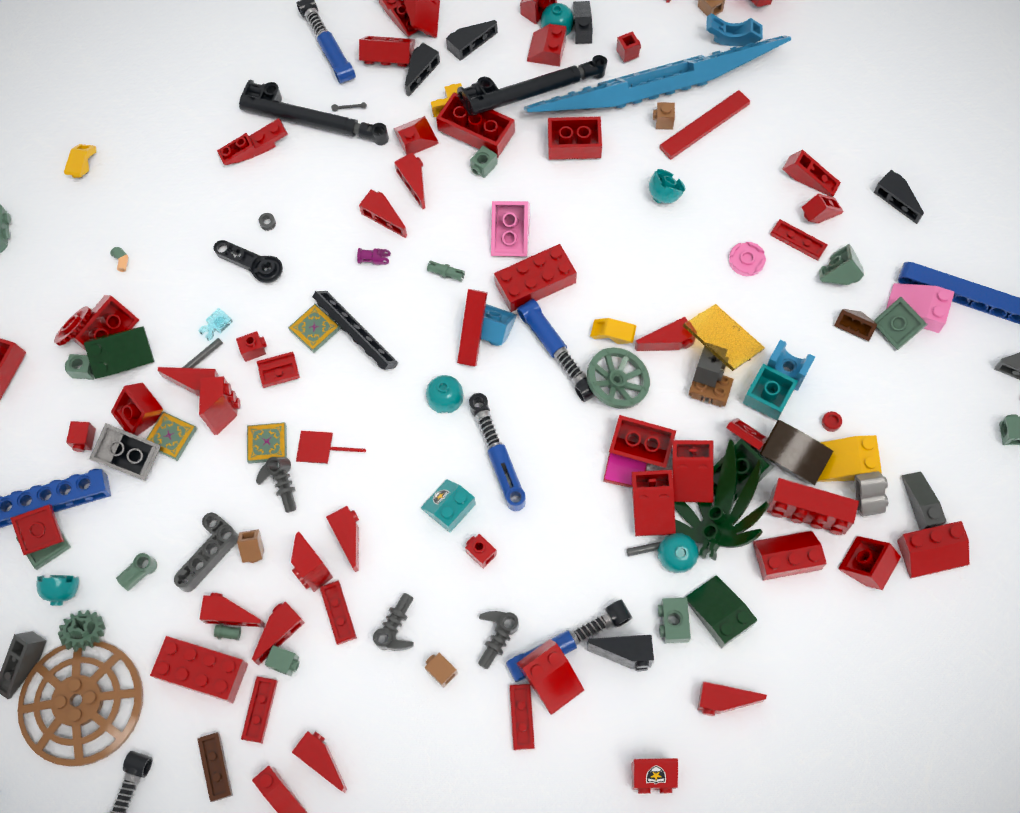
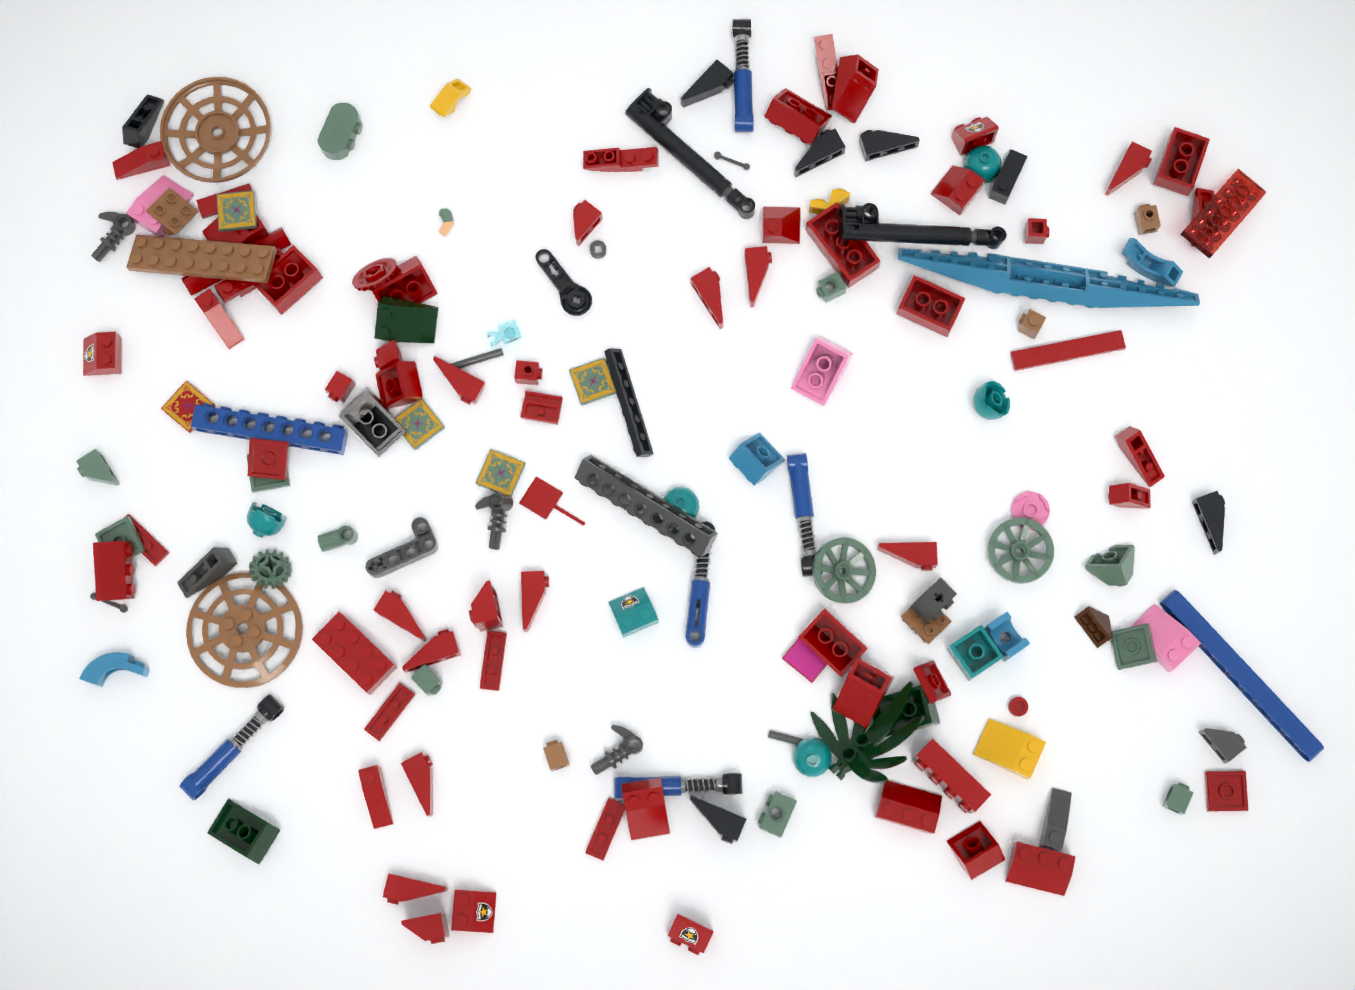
camera: 25 degrees right, 10 degrees up
(83, 372) = (359, 311): sand green brick -> none
(112, 386) = (387, 355): none -> red slope
(214, 767) = (332, 742): reddish brown plate -> none
(217, 403) = (472, 419): red slope -> none
(227, 632) = (391, 631): sand green pin -> none
(245, 202) = (585, 219): none -> red slope
(250, 546) = (444, 565): medium nougat brick -> none
(300, 57) = (710, 83): none -> black slope
(373, 256) = (679, 335): magenta piece -> none
(391, 625) = (535, 694): dark grey piece -> none
(445, 271) = (740, 383): sand green pin -> none
(472, 327) = (734, 457): red tile -> none
(480, 403) = (704, 536): none -> dark grey brick
(480, 550) = (641, 668): red brick -> none
(535, 277) = (820, 433): red brick -> none
(616, 330) = (864, 521): yellow slope -> none
(653, 502) = (812, 703): red slope -> none
(720, 699) = (780, 900): red slope -> none
(721, 611) = (821, 825): dark green slope -> none
(723, 337) = (962, 579): clear yellow piece -> none
(760, 289) = (1024, 547): none -> sand green wheel
(796, 452) = (964, 721): dark brown slope -> none
(798, 239) = (1090, 515): red tile -> none
(871, 493) = (1011, 791): light grey brick -> none

